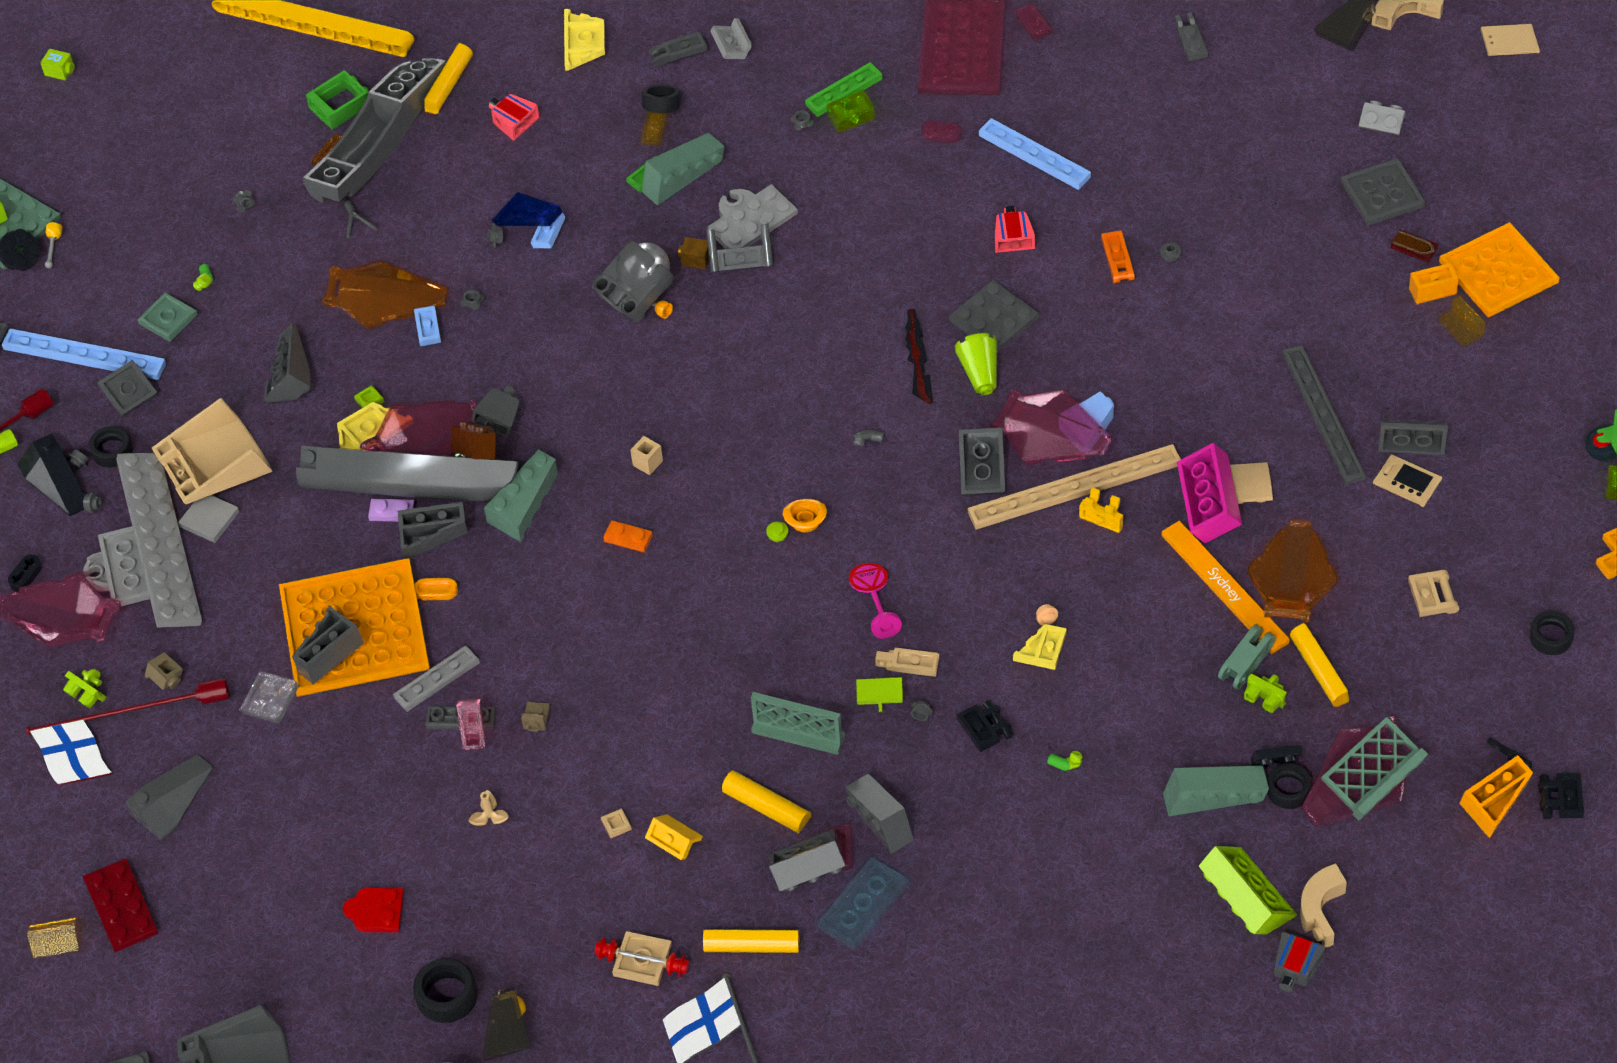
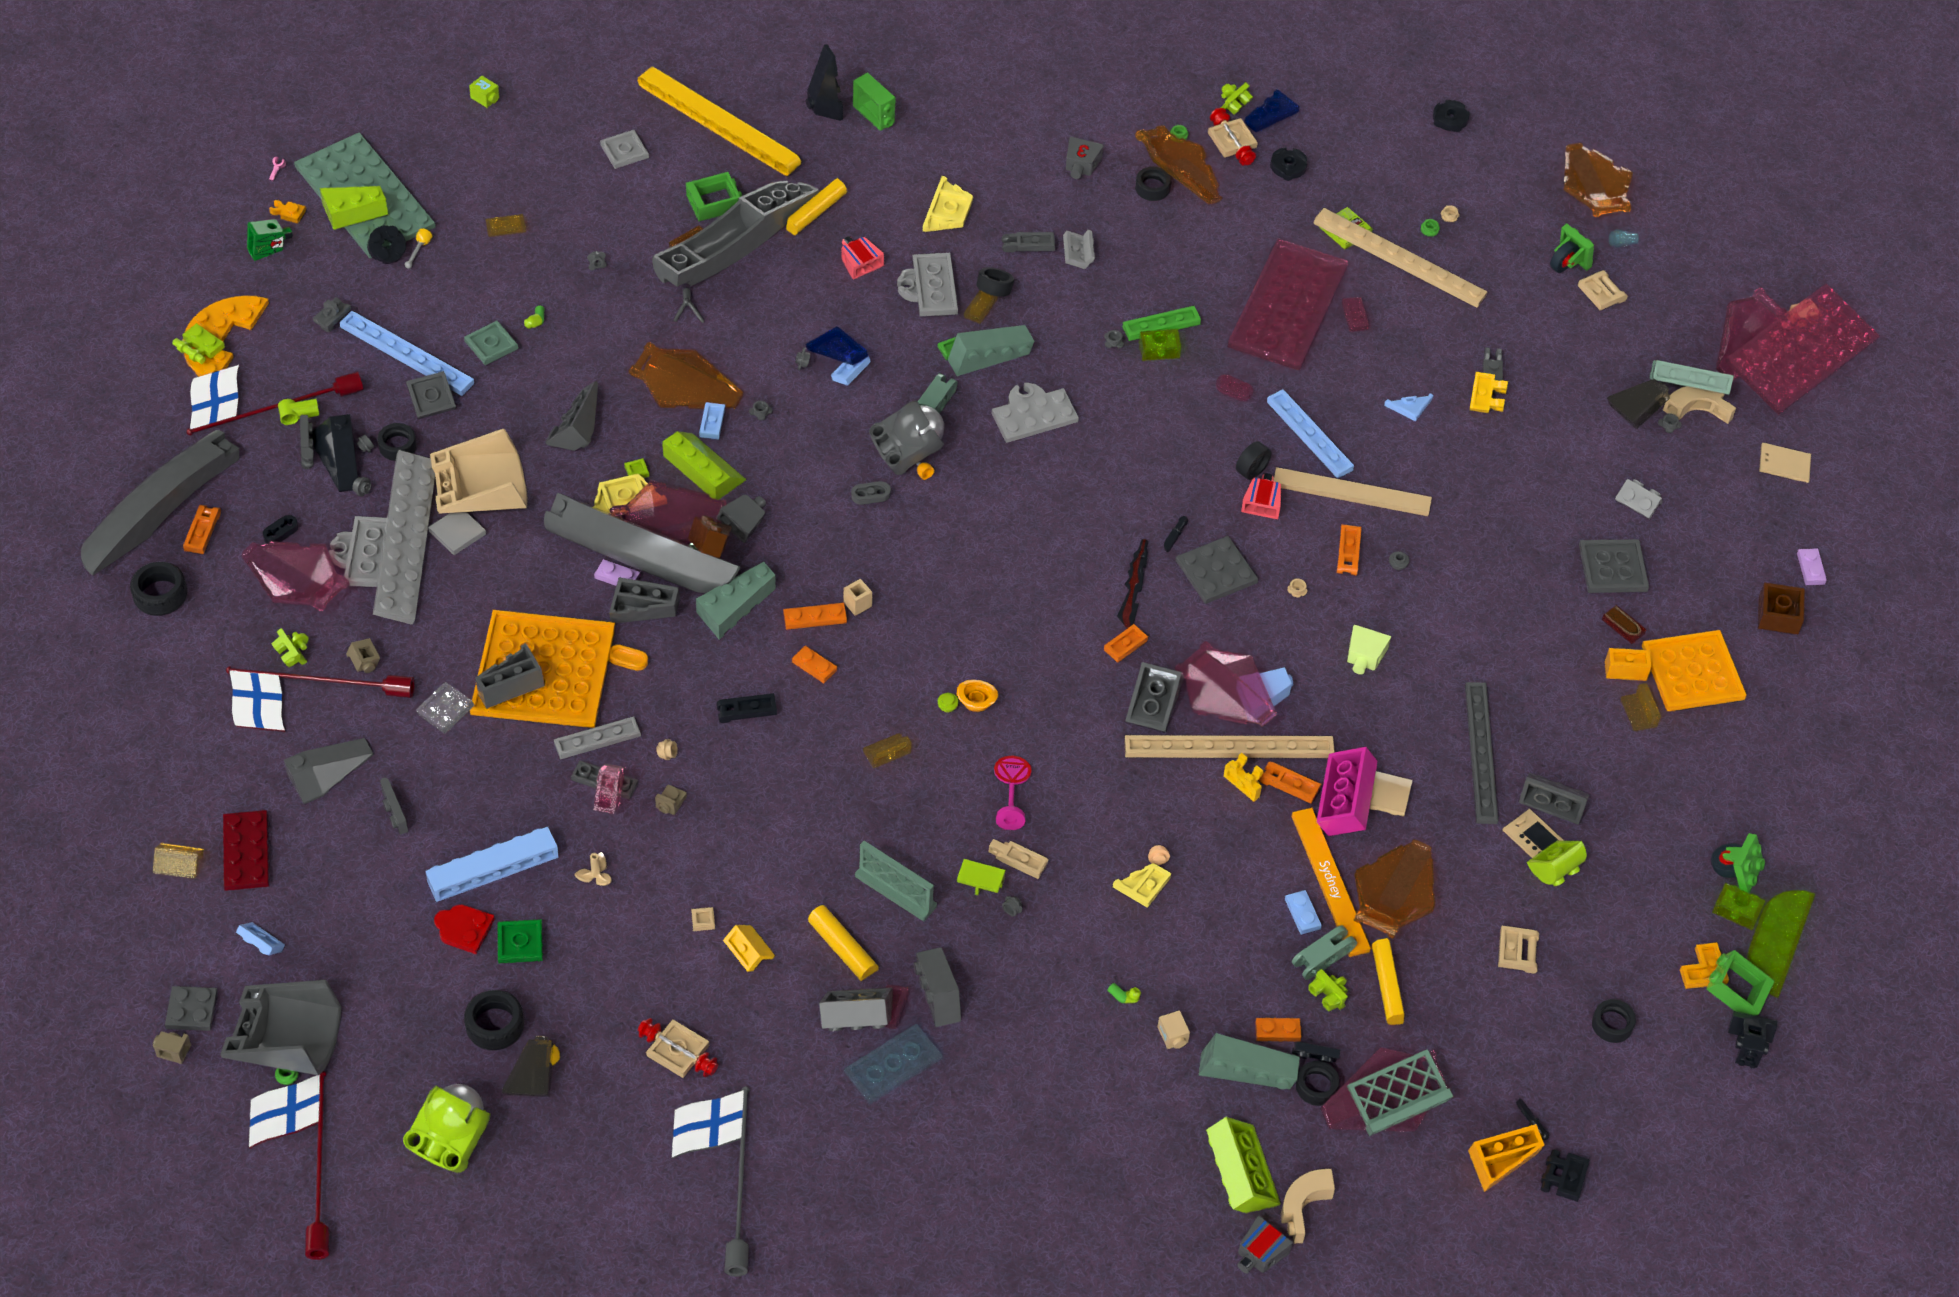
camera: 10 degrees right, 0 degrees up
(16, 477) = (306, 443): none -> dark grey hinge
(134, 194) = (505, 225): none -> clear yellow plate
(167, 986) = (264, 941): none -> light blue plate
(226, 79) = (624, 149): none -> light grey tile
(254, 811) = (391, 804): none -> dark grey hinge
(380, 837) = (491, 864): none -> light blue brick
(433, 373) = (701, 464): none -> lime slope
(439, 904) = (520, 941): none -> green plate
(512, 667) = (667, 749): none -> tan plate
(577, 600) = (746, 707): none -> black plate
(595, 121) = (930, 284): none -> light grey plate
(609, 488) = (815, 616): none -> orange plate
(616, 348) = (868, 492): none -> dark grey plate
(647, 226) = (938, 393): none -> sand green piece
(694, 253) = (972, 429): pearl gold brick -> none
(735, 597) = (887, 750): none -> clear yellow panel
(740, 257) = (1011, 445): dark grey plate -> none
(751, 941) = (779, 1065): yellow brick -> none
(872, 435) = (1064, 641): dark grey arm -> none
(932, 417) = (1125, 643): none -> orange plate
(938, 294) = (1173, 536): none -> black piece
(978, 727) = (1057, 937): black plate -> none
(979, 361) = (1186, 606): lime cone -> none
(990, 197) = (1253, 460): none -> black tyre
(1081, 305) = (1297, 584): none -> tan plate
(1099, 198) = (1353, 491): none -> tan tile
(1122, 97) = (1410, 406): none -> light blue tile
(1128, 780) = (1173, 1030): none -> tan brick
(1148, 502) = (1290, 782): none -> orange plate
(1172, 348) = (1366, 648): none -> yellowish green torso
(1189, 60) = (1482, 393): none -> yellow plate
(1209, 625) = (1303, 912): none -> light blue plate
(1229, 746) = (1278, 1029): none -> orange plate
(1383, 35) = (1669, 422): none -> dark grey plate
(1439, 496) = (1557, 861): none -> lime brick
(1561, 182) = (1781, 608): none -> reddish brown brick
(1574, 133) = (1811, 566): none -> lavender plate

